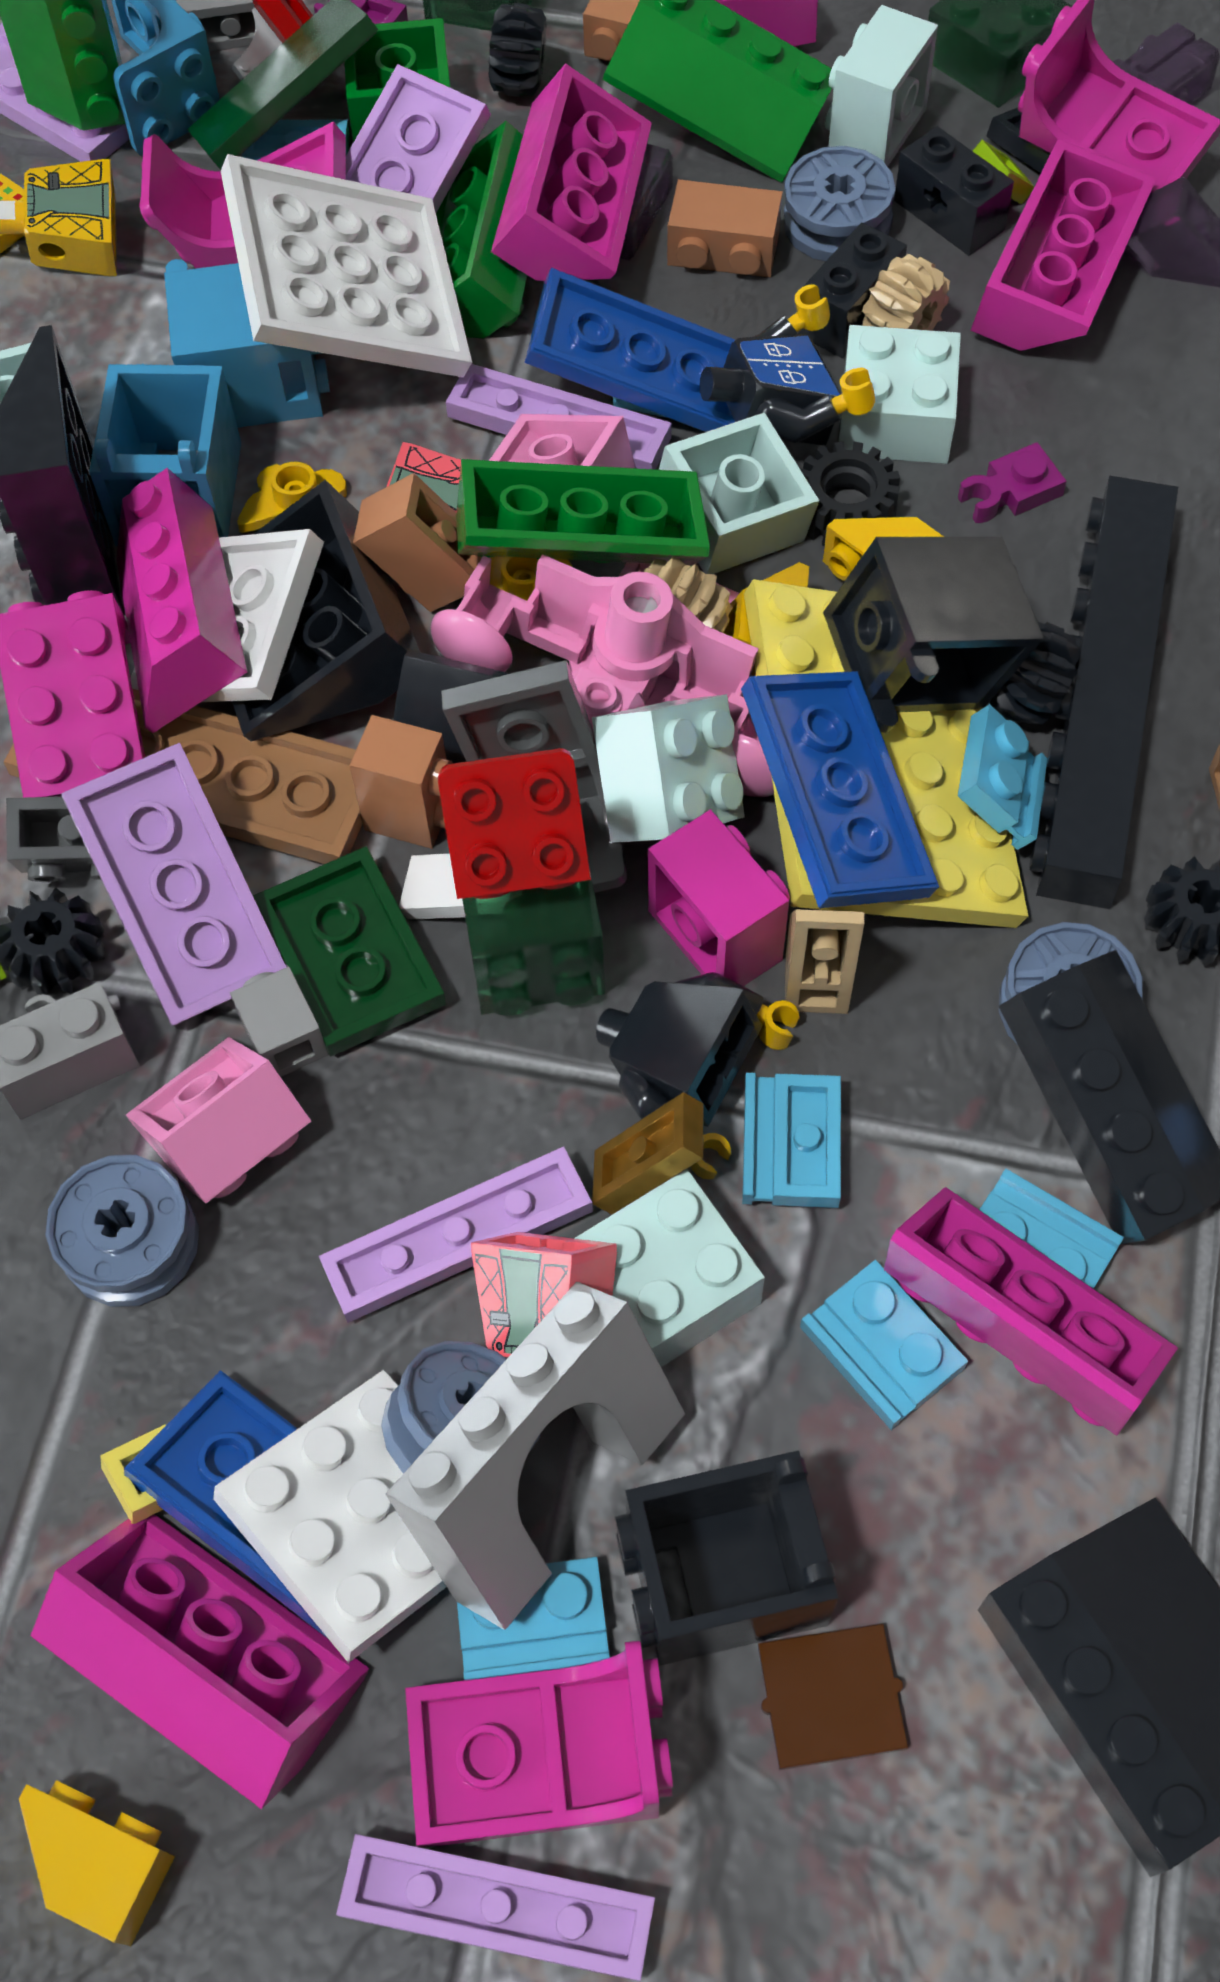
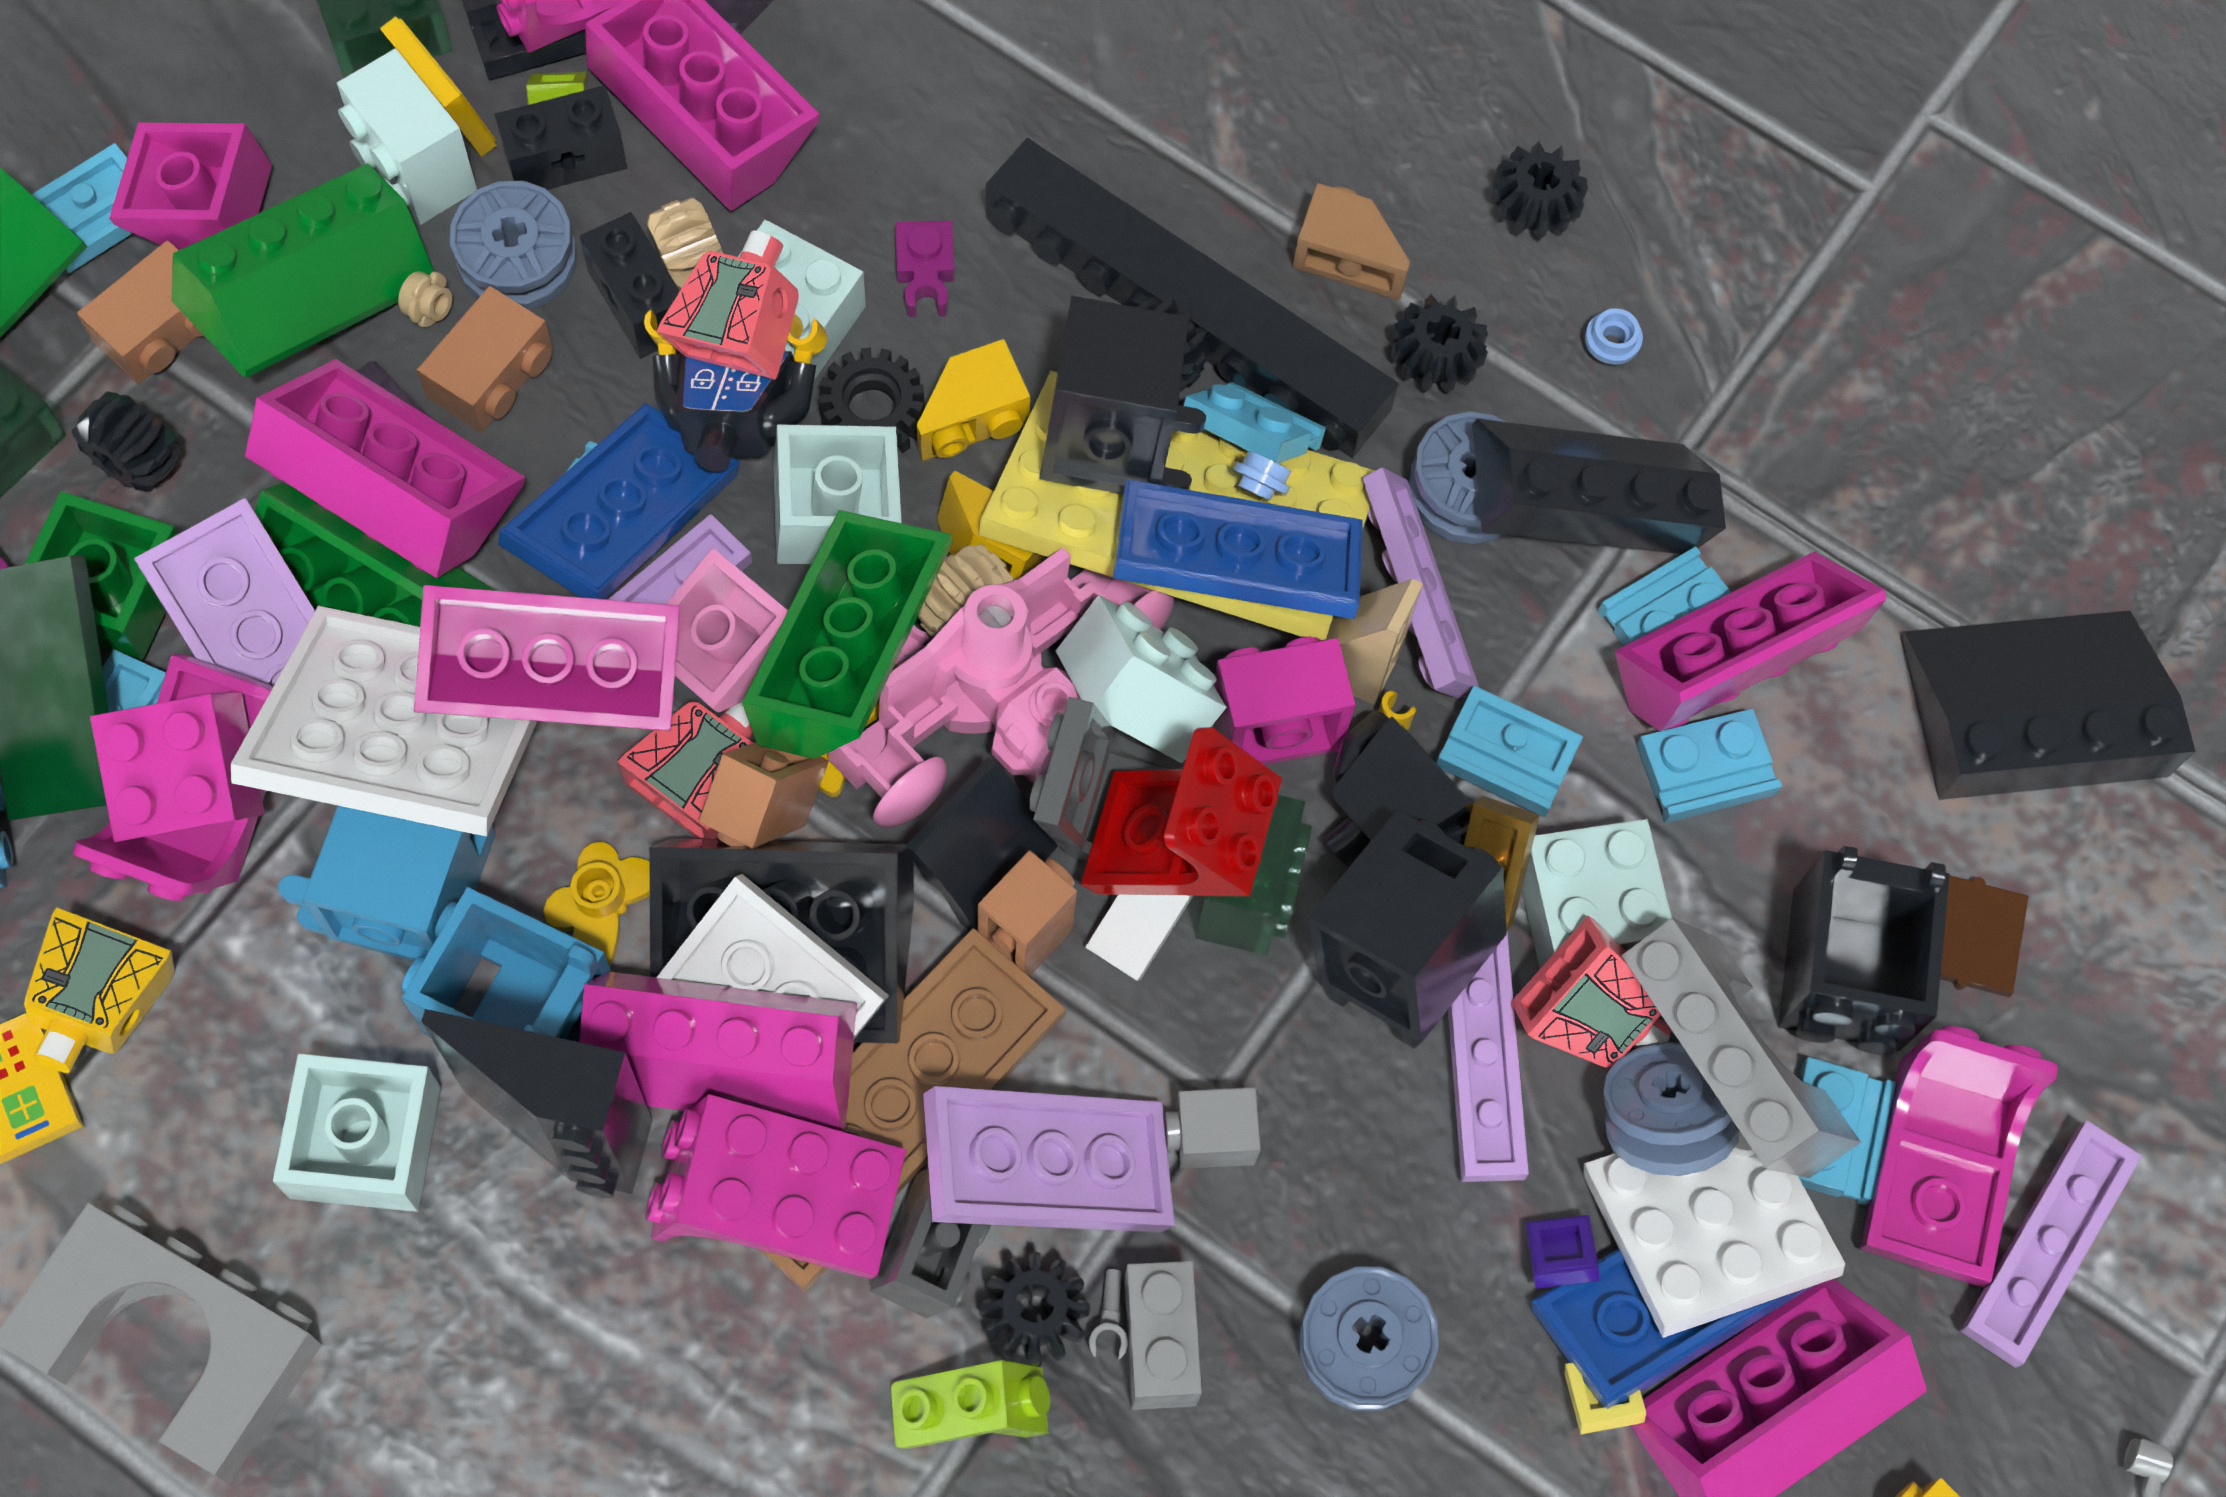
camera: 75 degrees left, 5 degrees up
(220, 1119) = (1287, 1216): bright pink slope -> none
(242, 129) = (171, 765): none -> dark pink brick
(280, 1380) = (1562, 1251): none -> dark purple tile
(350, 950) = (1161, 1035): dark green plate -> none
(447, 336) = (546, 658): none -> slope
(530, 1085) = (1409, 925): none -> black container
(756, 160) = (425, 298): none -> tan plate
(845, 325) = (735, 309): none -> coral torso
(922, 990) = (1409, 556): none -> lavender plate
(934, 785) = (1262, 476): none -> light blue plate
(942, 78) = (440, 85): none -> yellow tile

